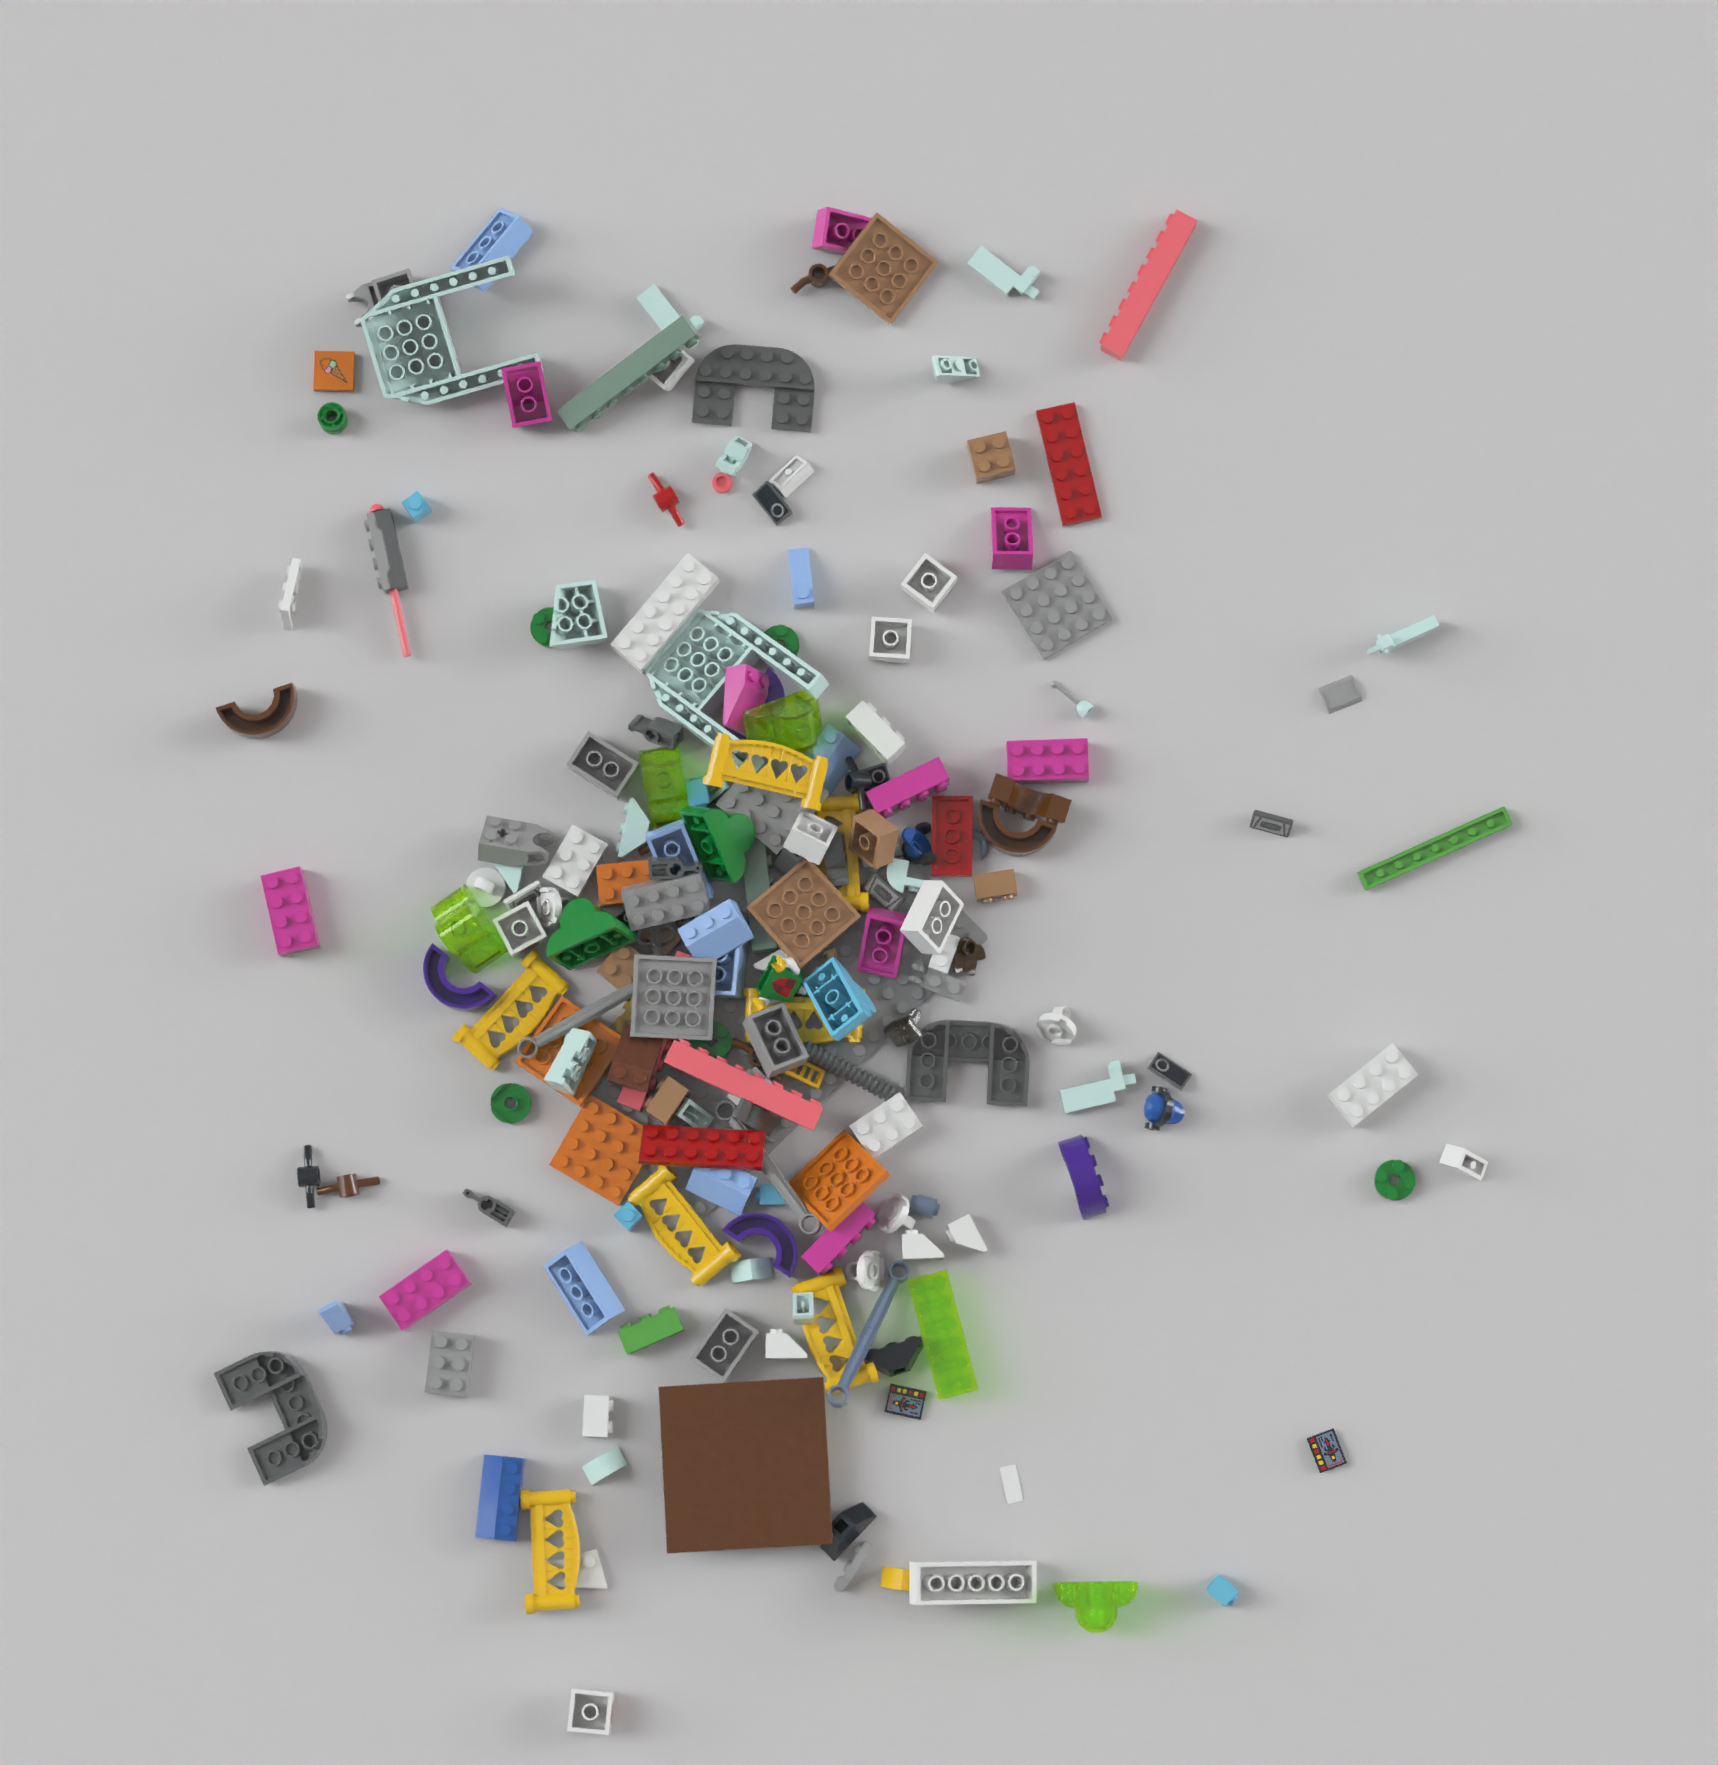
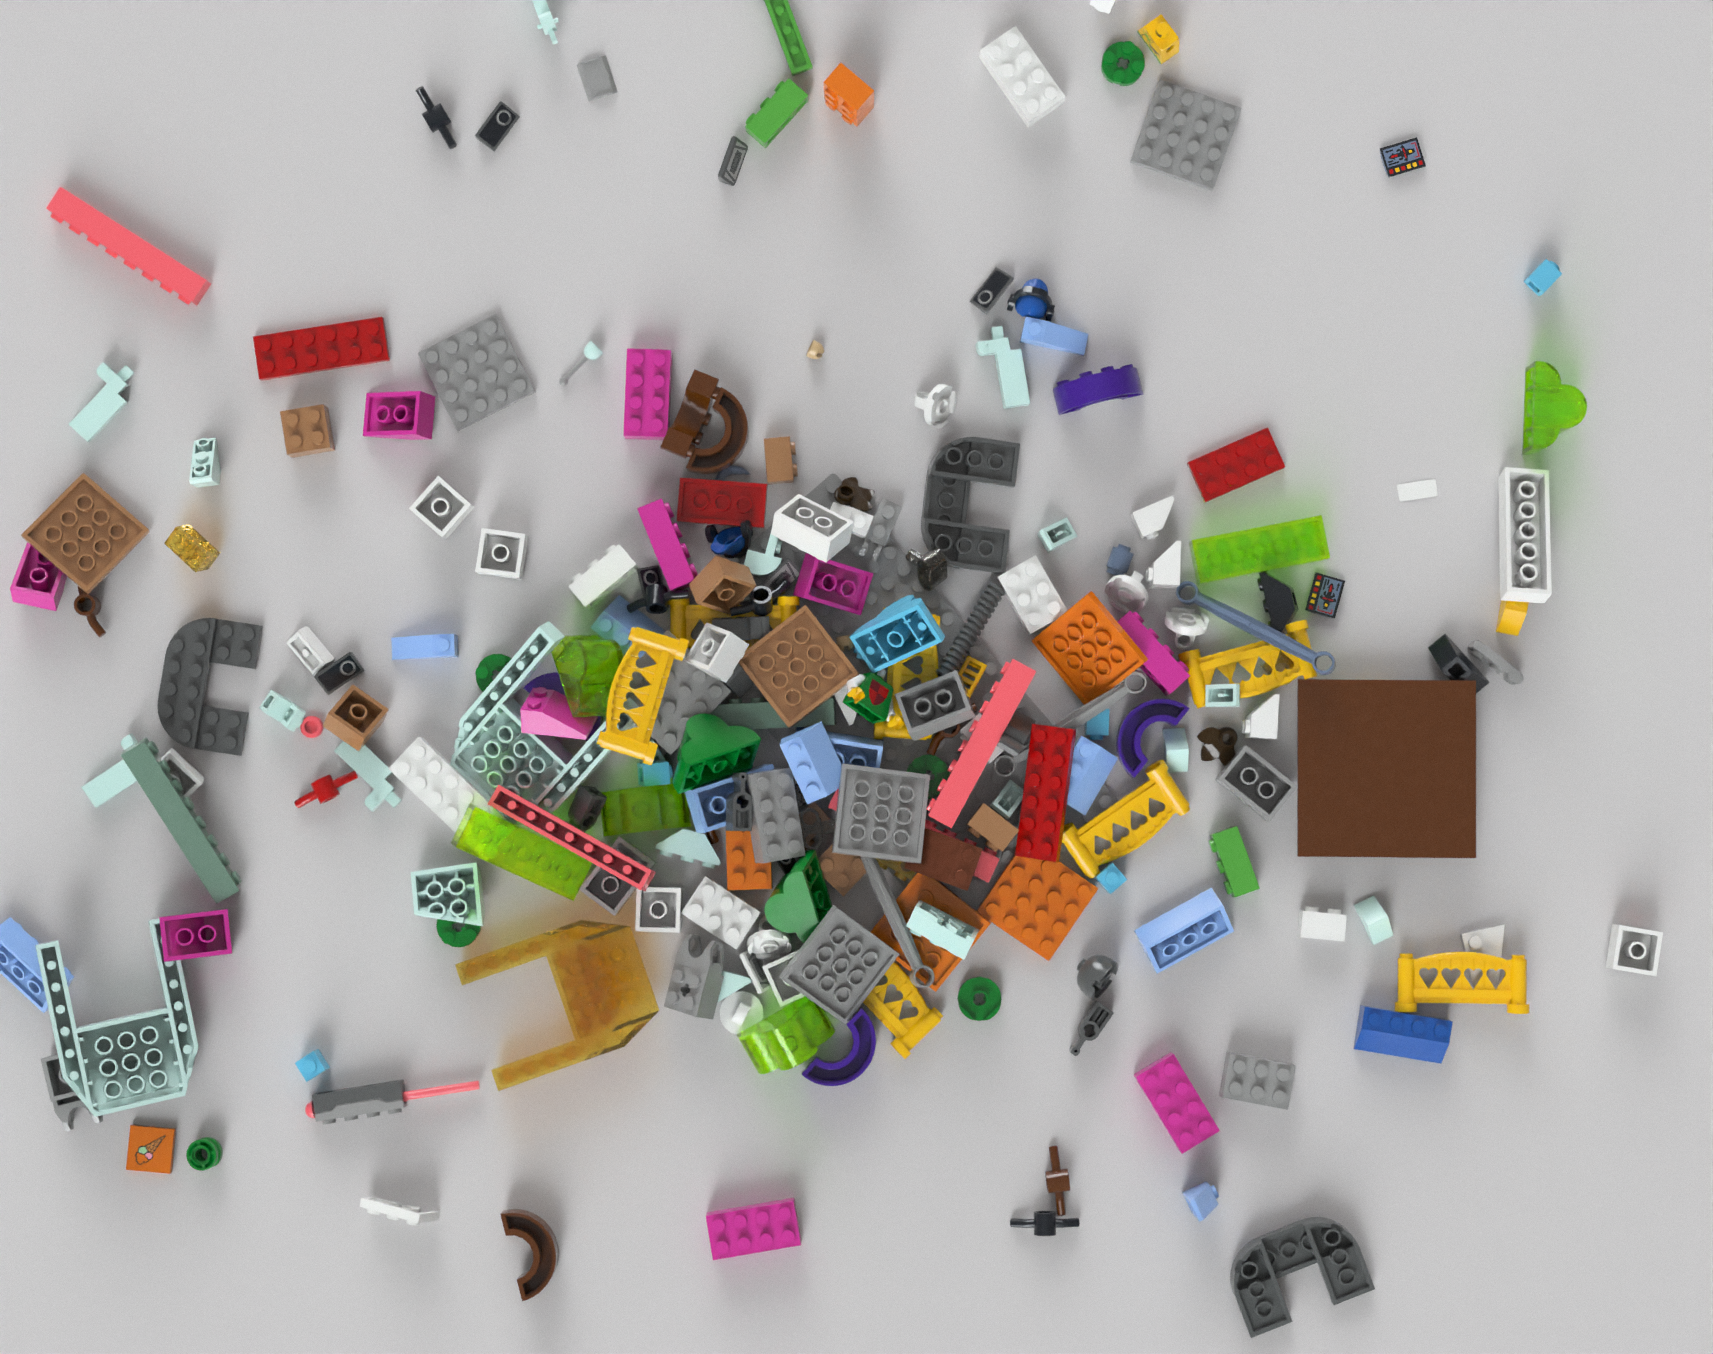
camera: 90 degrees left, 5 degrees up
(502, 755) = (599, 986): none -> clear yellow wedge
(533, 969) = (839, 965): none -> light grey plate
(537, 1207) = (1095, 975): none -> dark grey cylinder
(575, 805) = (659, 909): none -> white brick
(618, 677) = (520, 851): none -> clear neon green brick
(633, 720) = (571, 838): none -> coral brick
(686, 538) = (372, 771): none -> light aqua piece
(731, 520) = (355, 717): none -> medium nougat brick
(757, 1306) = (1215, 747): none -> dark brown plate
(868, 873) = (761, 600): none -> black piece
(876, 363) = (192, 548): none -> clear yellow brick
(944, 1146) = (1056, 534): none -> light aqua slope
(1022, 1310) = (1236, 465): none -> red plate
(1100, 912) = (815, 350): none -> tan hinge
(1130, 1131) = (1053, 336): none -> light blue slope
(1286, 606) = (497, 126): none -> slope
(1289, 550) = (436, 117): none -> black piece
(1320, 860) = (776, 112): none -> bright green brick
(1331, 1244) = (1186, 135): none -> light grey plate
(1340, 921) = (848, 95): none -> orange brick
(1419, 1212) = (1159, 37): none -> yellow torso

